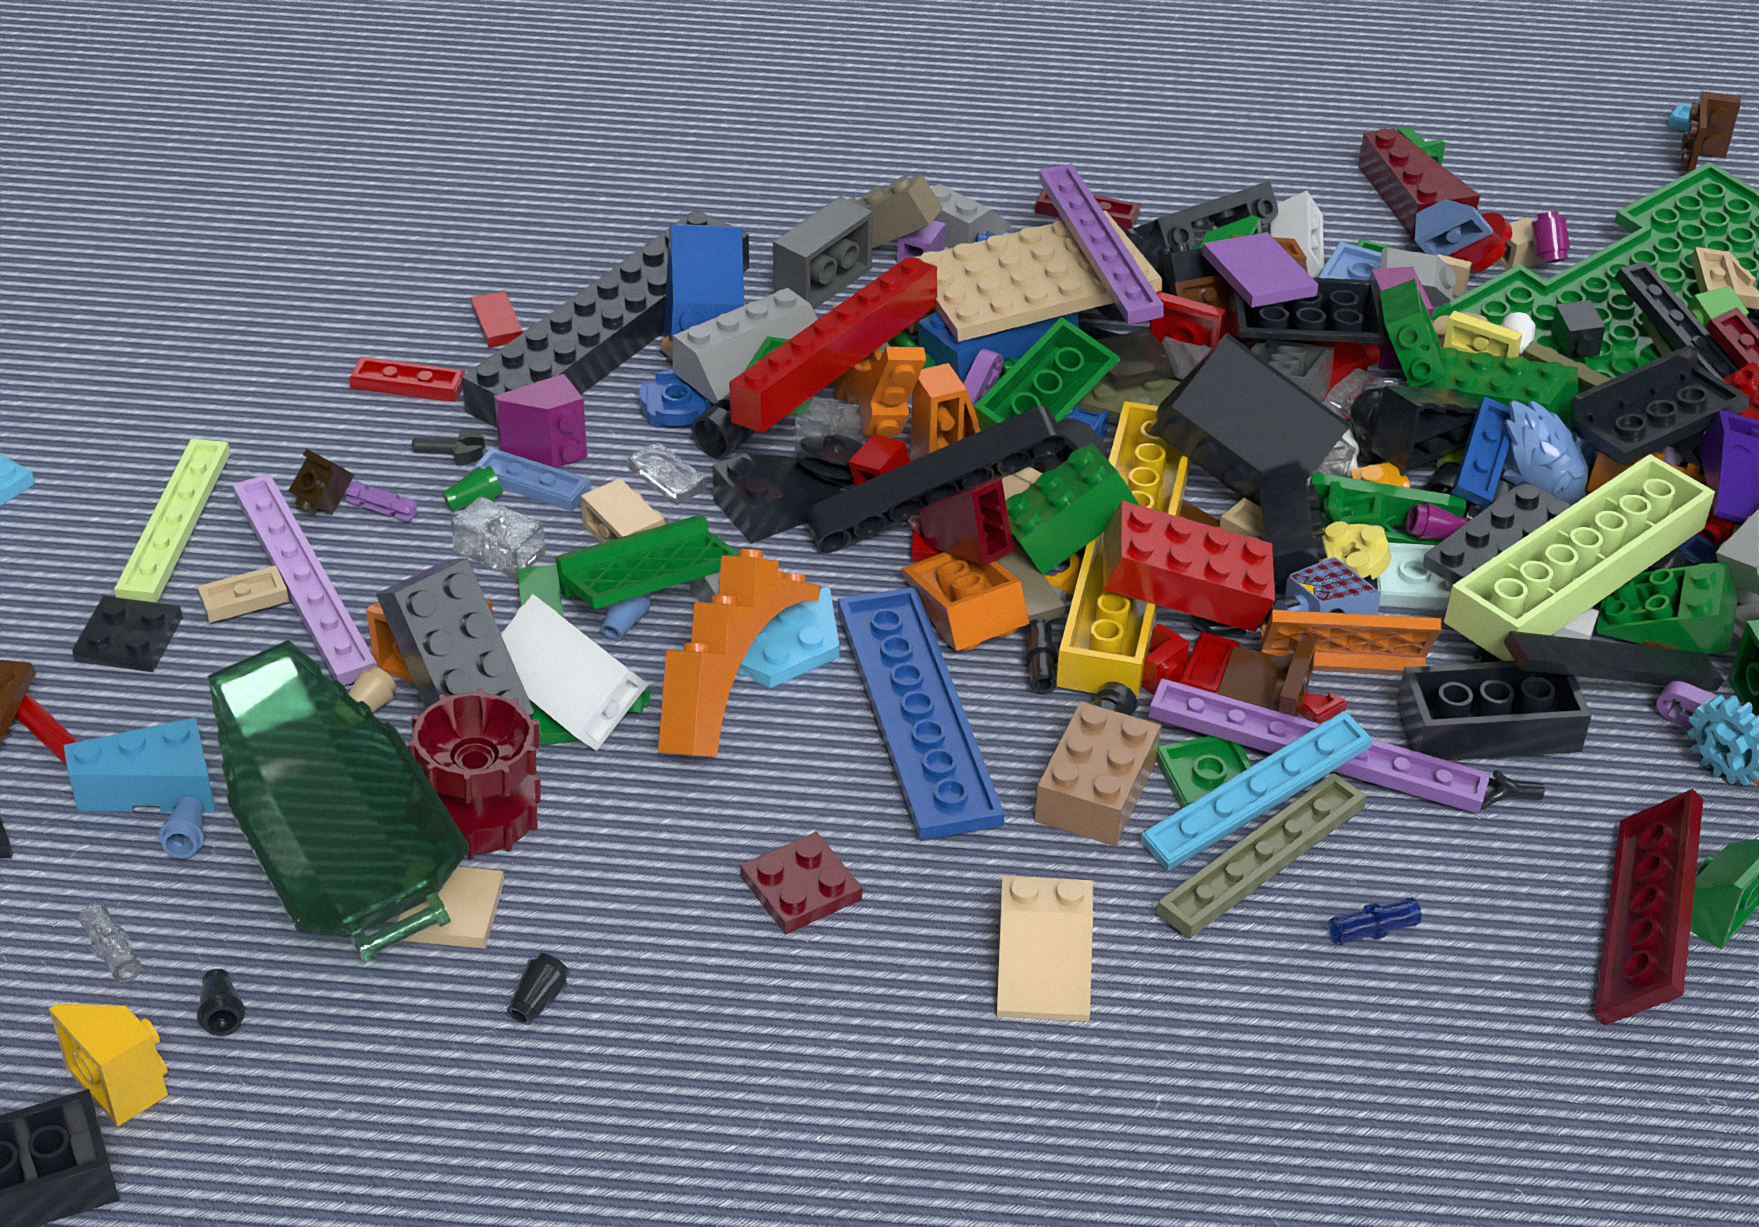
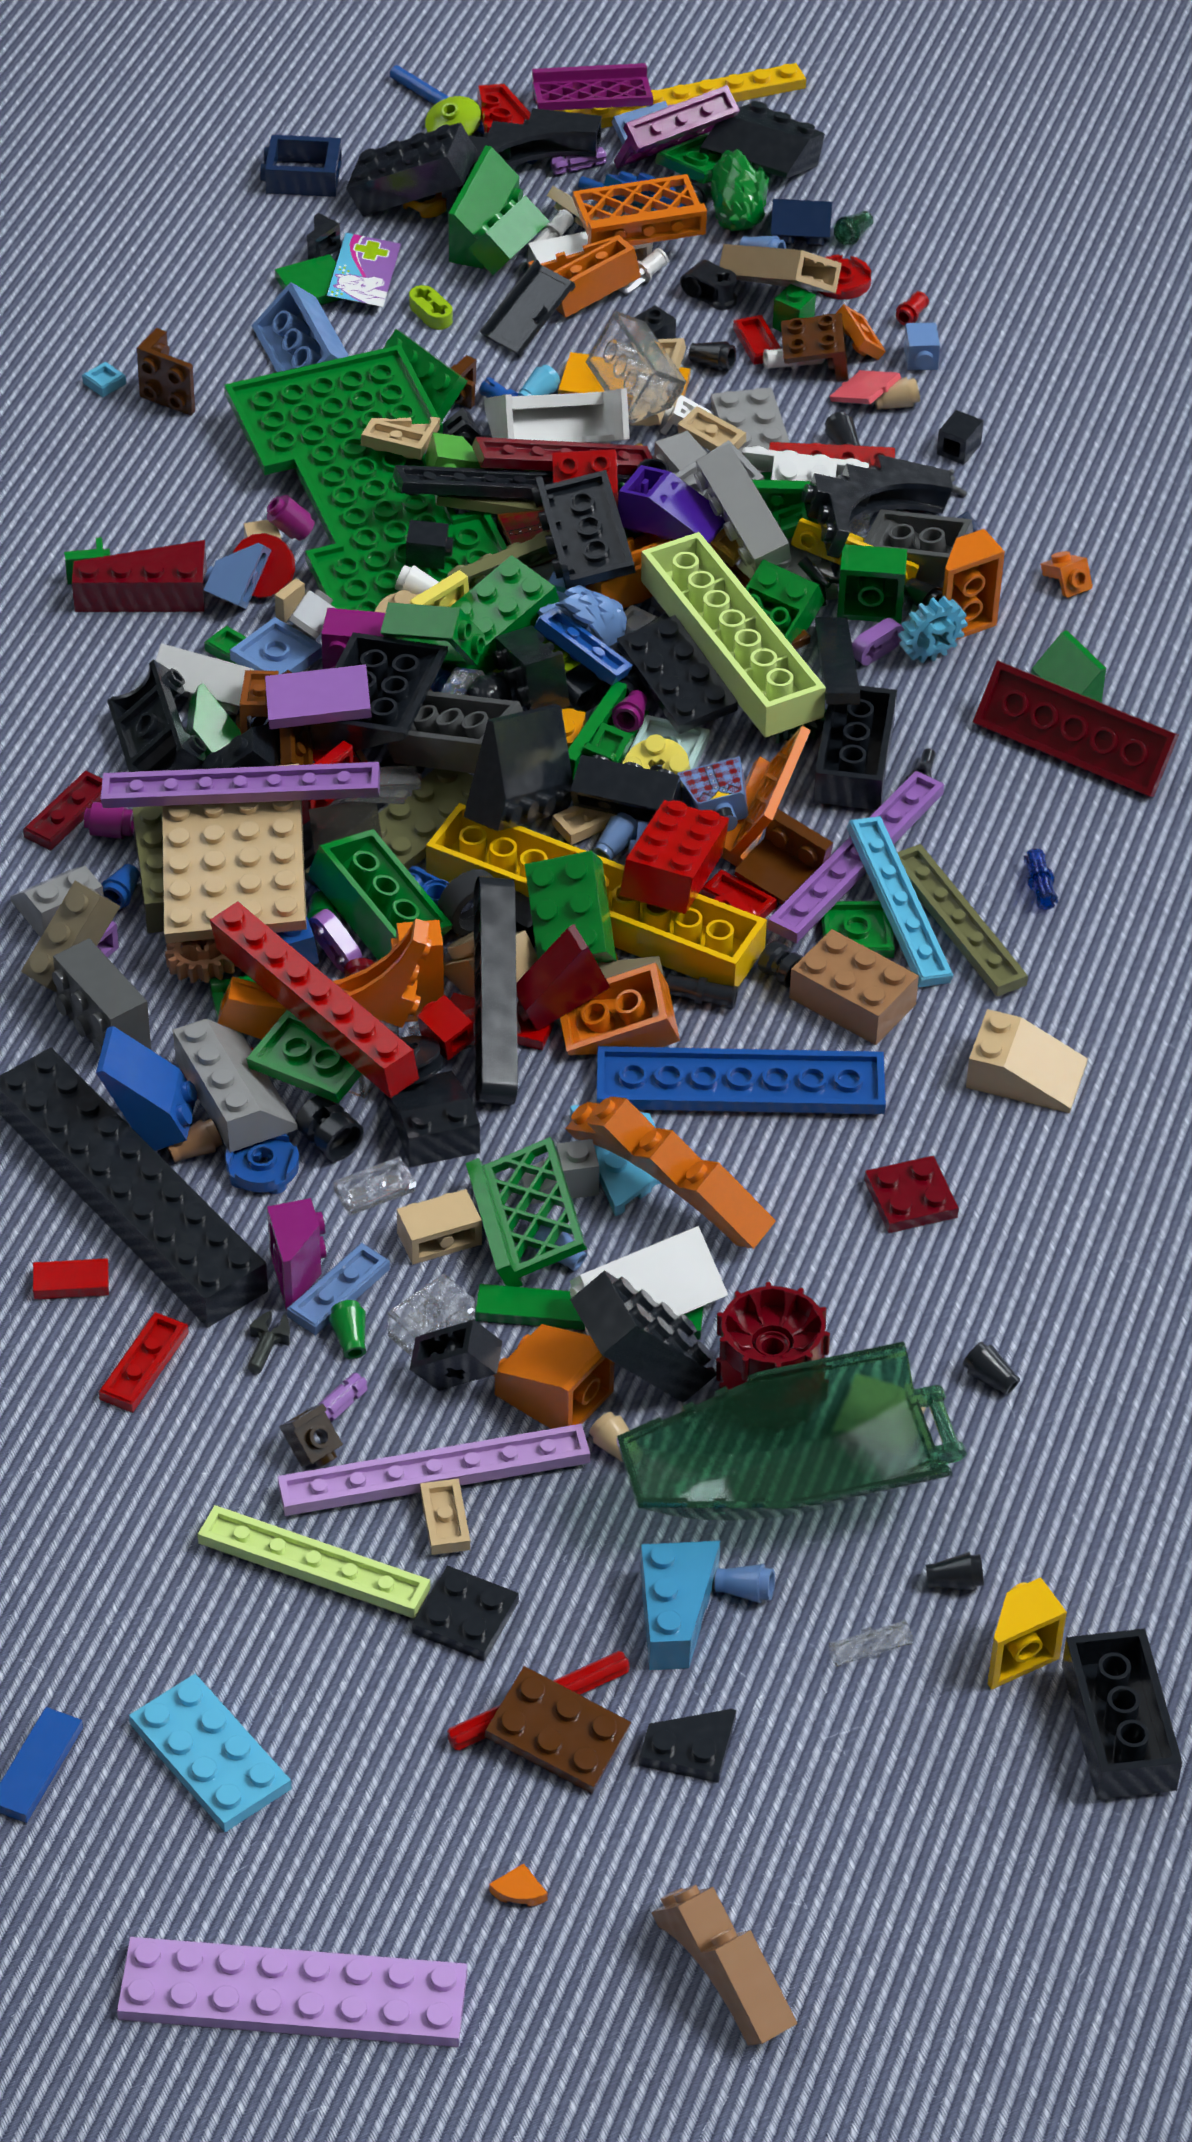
camera: 75 degrees left, 5 degrees up
(427, 545) = (456, 1355): none -> black brick

